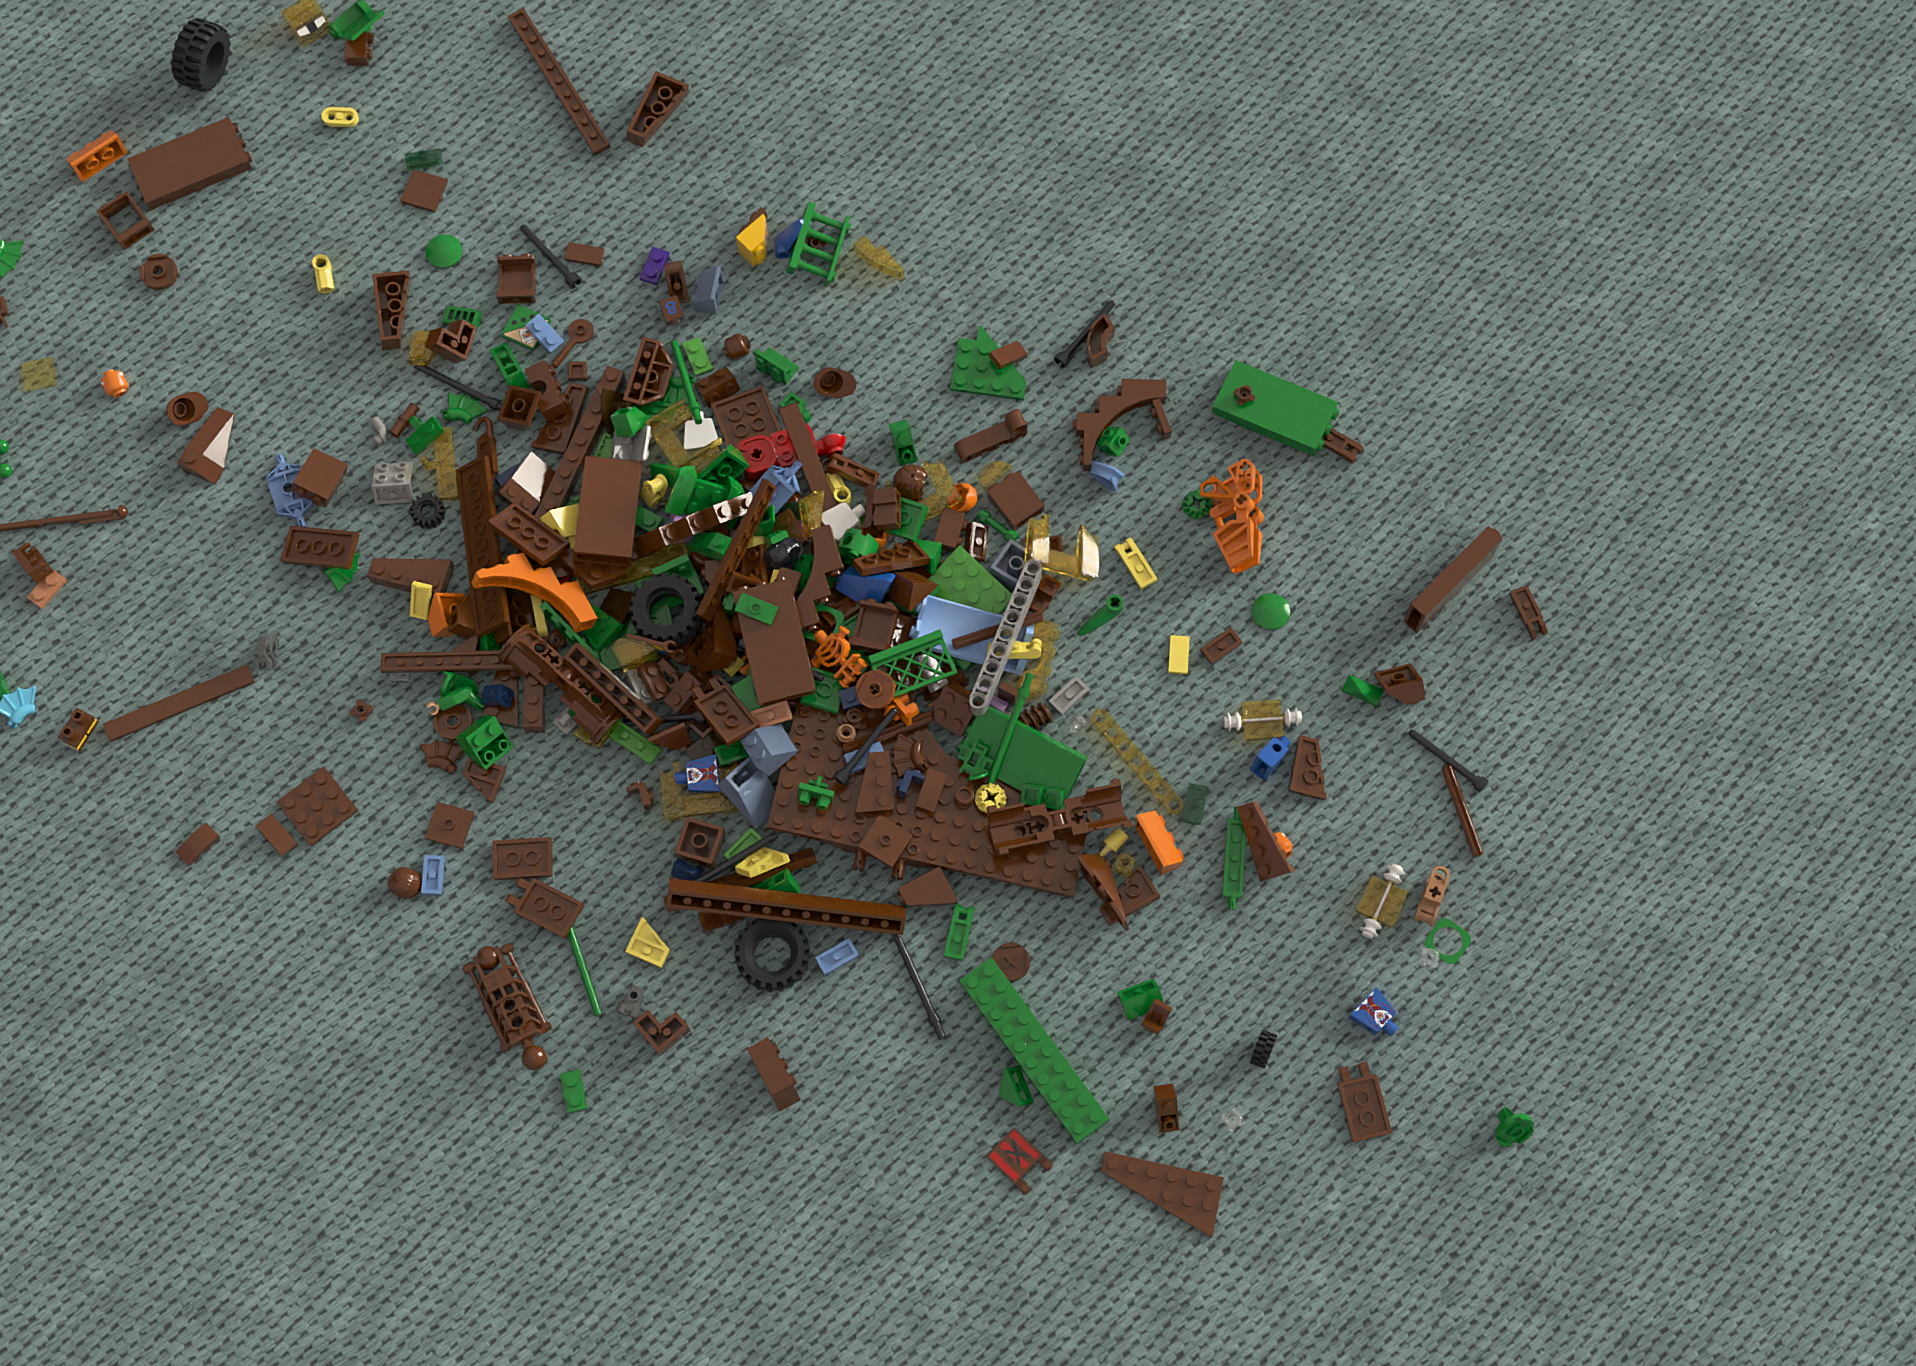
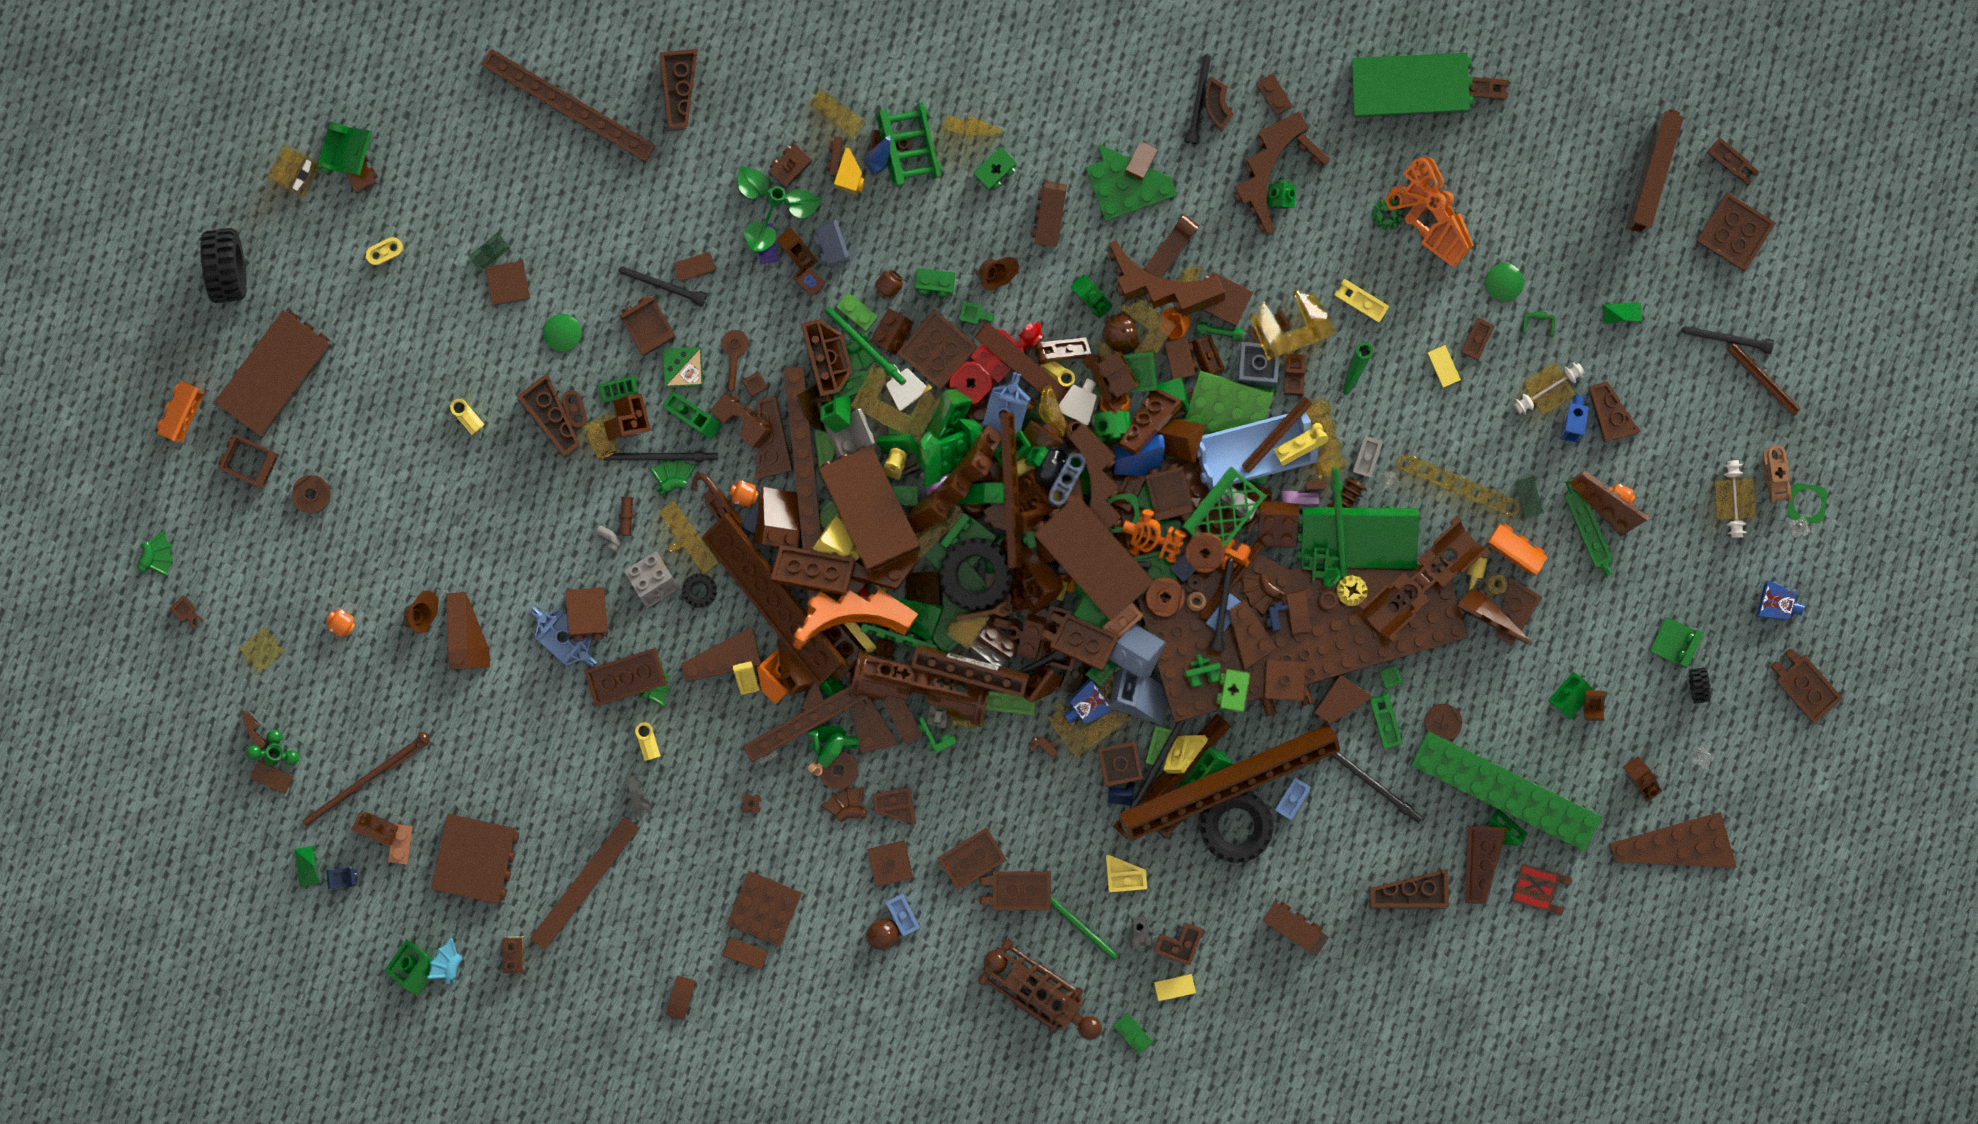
camera: 25 degrees left, 15 degrees up
(99, 632) = (475, 859): none -> reddish brown panel
(305, 613) = (647, 743): none -> light yellow piece
(415, 315) = (574, 409): none -> reddish brown plate
(424, 433) = (653, 520): green plate -> none
(485, 741) = (879, 774): green slope -> none
(497, 695) = (866, 728): dark blue bracket -> none
(512, 451) = (743, 494): none -> orange head
(519, 407) = (729, 451): reddish brown slope -> none
(544, 333) = (705, 365): medium blue plate -> none
(555, 742) = (945, 741): none -> green bracket
(635, 1070) = (1174, 987): none -> light yellow tile
(673, 213) = (754, 183): none -> green plant
(710, 214) = (790, 165): none -> reddish brown brick
(756, 609) = (1064, 539): green plate -> none
(775, 194) = (837, 113): none -> clear yellow slope
(791, 557) = (1069, 471): none -> sand blue beam
(829, 834) = (1239, 681): none -> bright green brick
(830, 710) = (1170, 605): none -> dark orange plate
(887, 294) = (1001, 159): none -> green brick
(900, 1099) = (1420, 892): none -> reddish brown wedge
(905, 357) = (1049, 213): none -> reddish brown wedge
(977, 1103) = (1482, 858): none -> reddish brown wing
(981, 475) = (1186, 296): none -> reddish brown arch
(985, 896) = (1391, 677): none -> green tile
(1005, 645) = (1288, 393): light grey beam -> none
(1038, 795) = (1398, 563): green slope -> none
(1106, 475) = (1293, 231): medium blue hat -> none
(1152, 360) = (1274, 94): none -> reddish brown plate
(1244, 390) = (1379, 95): reddish brown plate -> none
(1262, 1000) = (1676, 642): none -> green bracket
(1287, 655) = (1542, 316): none -> green piece
(1402, 683) = (1654, 290): reddish brown slope -> none
(1501, 672) = (1735, 232): none -> reddish brown plate
(1513, 1127) = (1941, 640): green tile -> none

